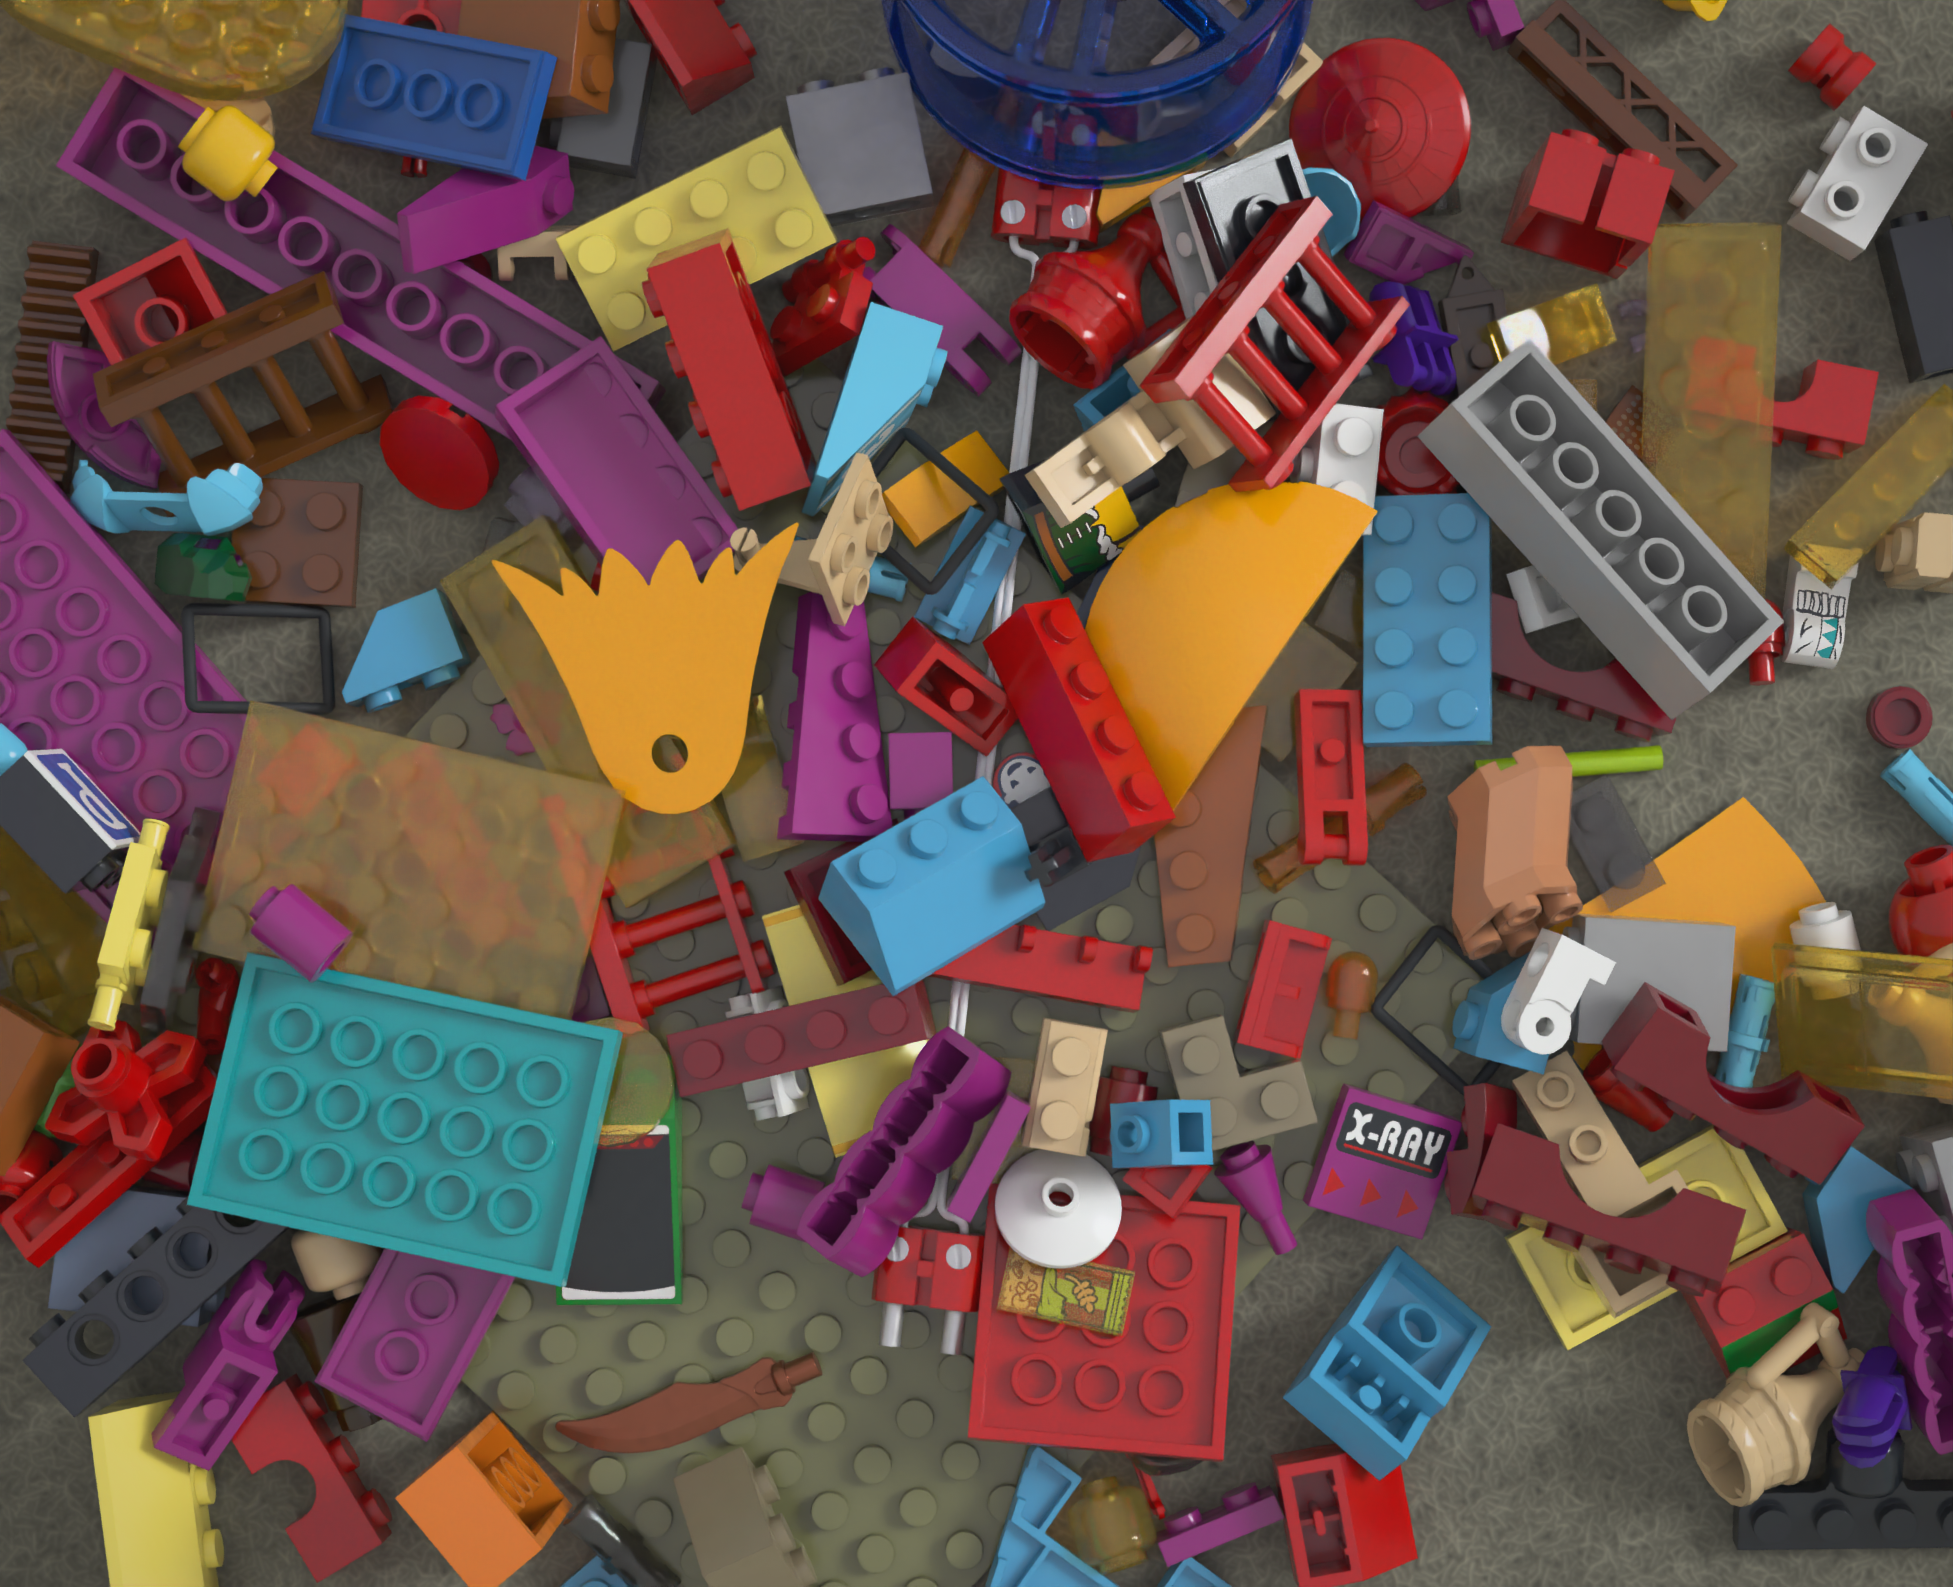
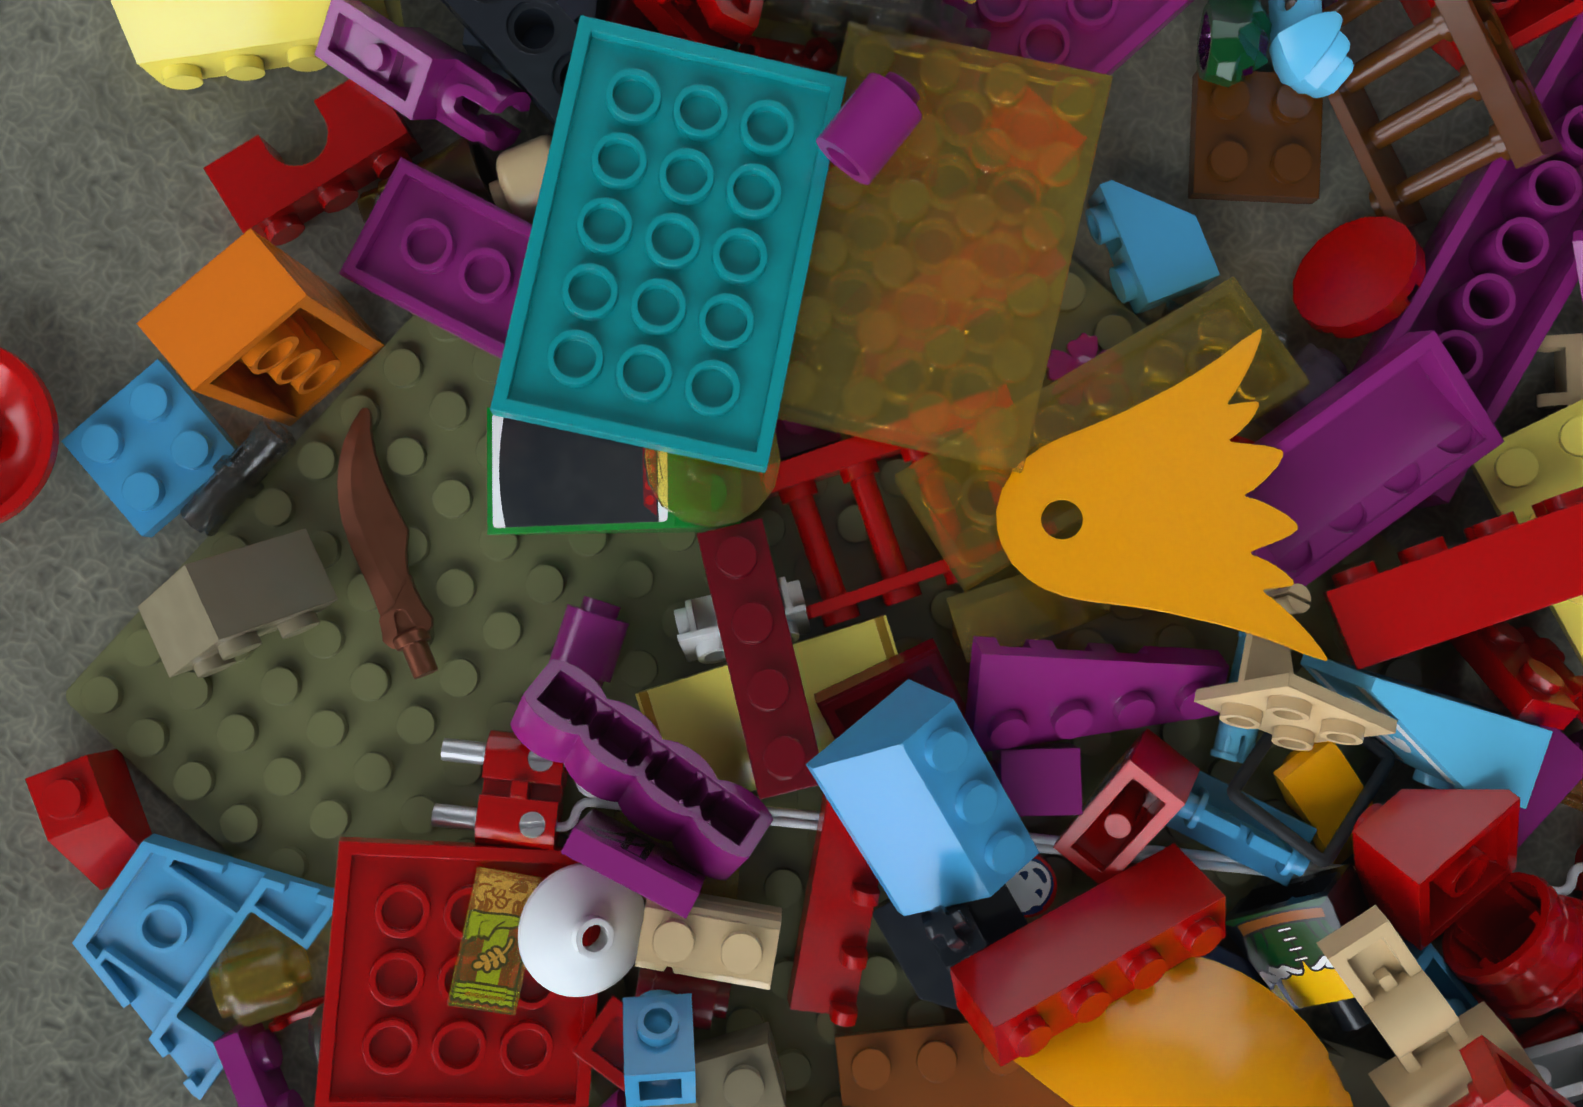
camera: 90 degrees right, 0 degrees up
(256, 610) = (1188, 90): black piece -> none
(989, 405) = (1435, 855): none -> red slope

